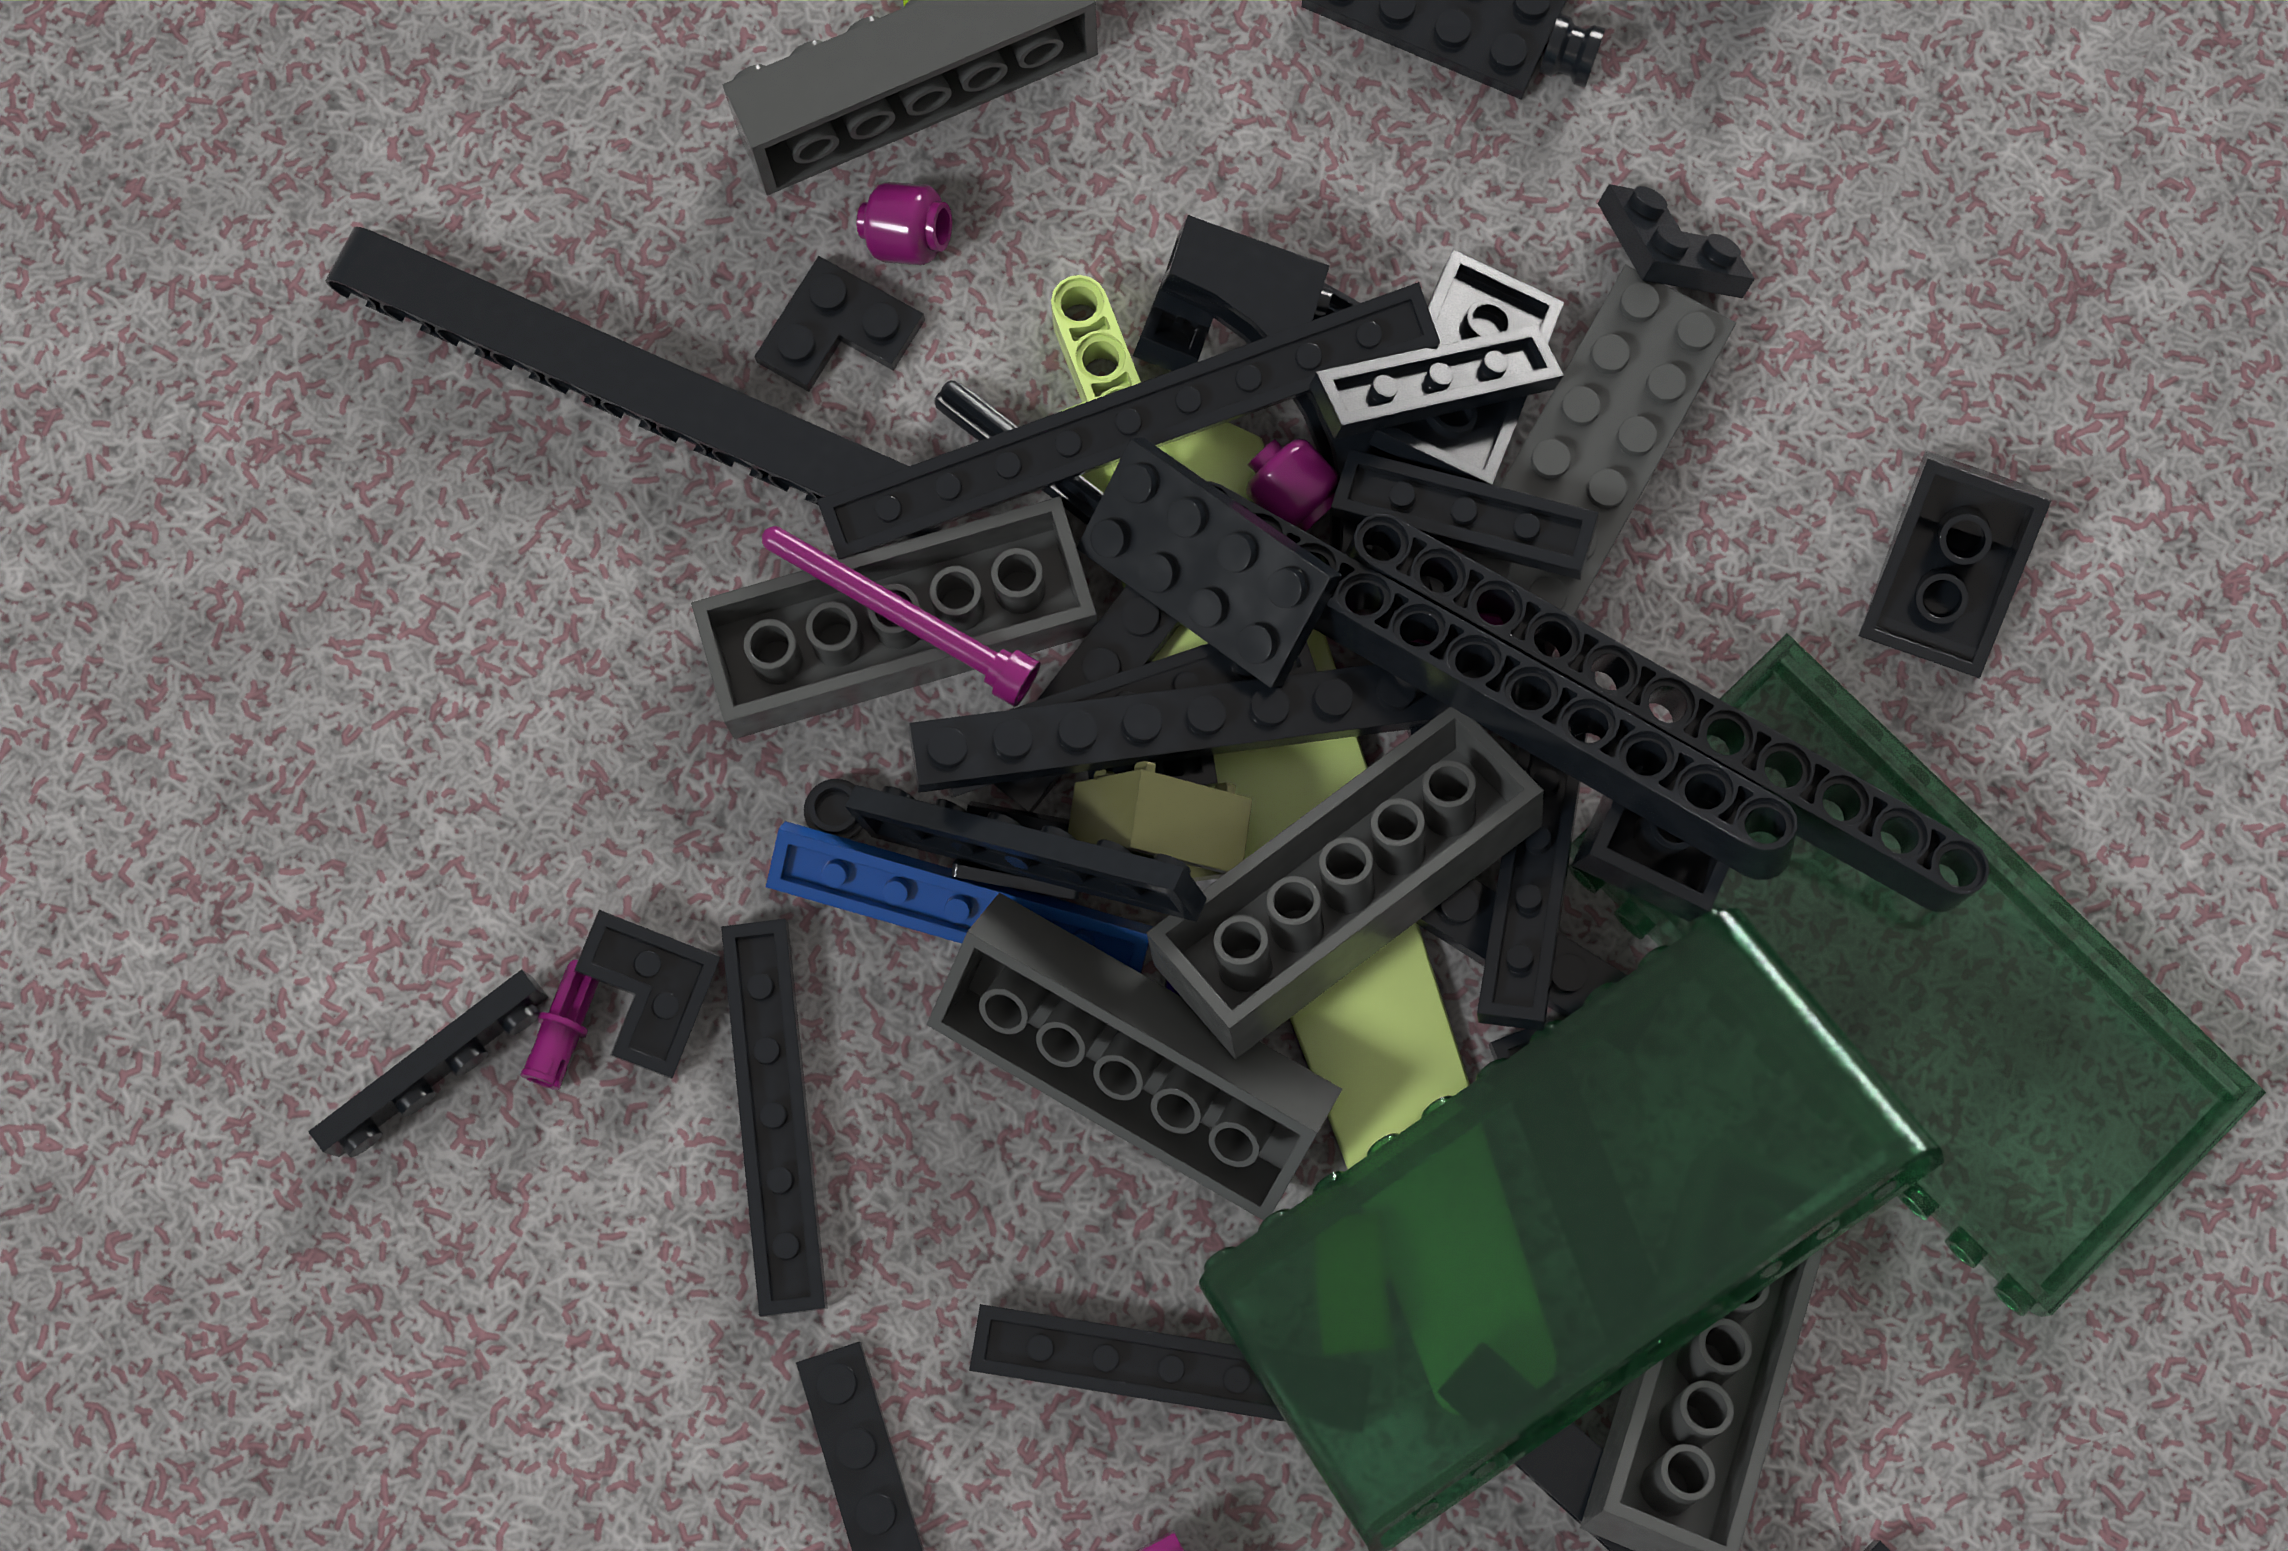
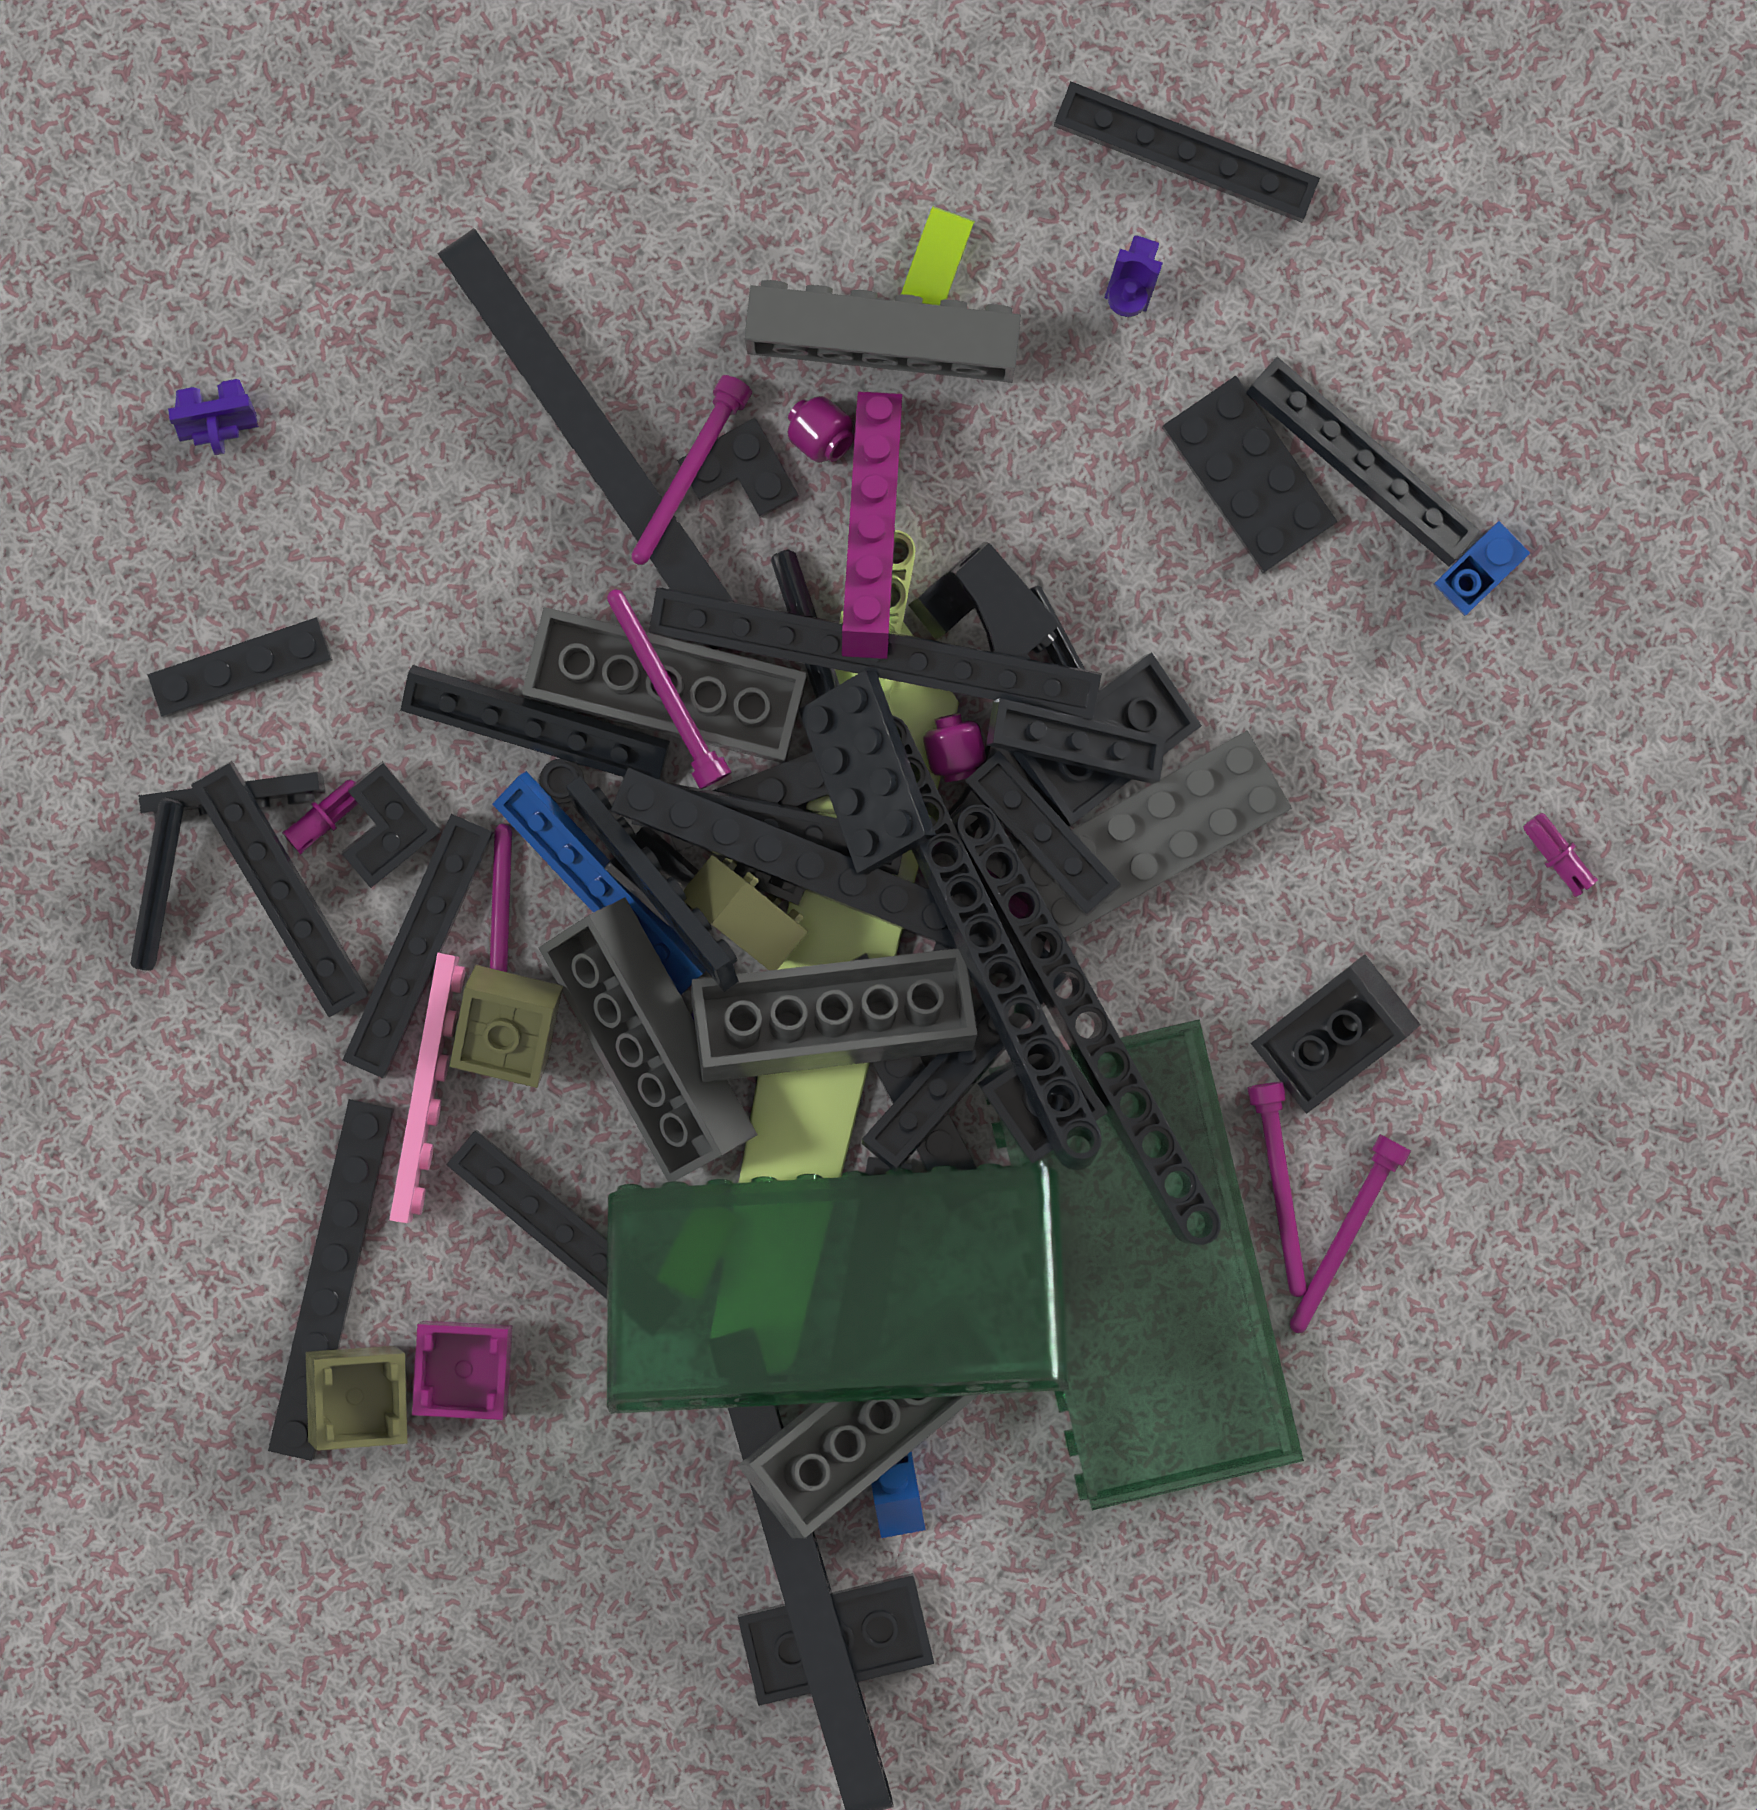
camera: 30 degrees right, 10 degrees up
(154, 623) = (213, 419): none -> dark purple hips
(354, 907) = (240, 667): none -> black plate
(394, 1231) = (157, 883): none -> black axle
(555, 1142) = (280, 888): none -> black plate
(752, 763) = (532, 724): none -> black plate
(775, 249) = (729, 397): none -> magenta piece
(898, 1313) = (423, 1108): none -> bright pink plate
(924, 1147) = (501, 897): none -> magenta piece
(943, 1145) = (506, 1026): none -> olive container
(1037, 281) = (872, 525): none -> magenta brick
(1572, 50) = (1311, 563): black wheel -> none
(1665, 252) = (1279, 732): black plate -> none
(1806, 1456) = (898, 1500): none -> blue slope
(1927, 690) = (1268, 1102): none -> magenta piece
(2069, 208) = (1559, 854): none -> magenta axle
(2110, 672) = (1387, 1158): none -> magenta piece

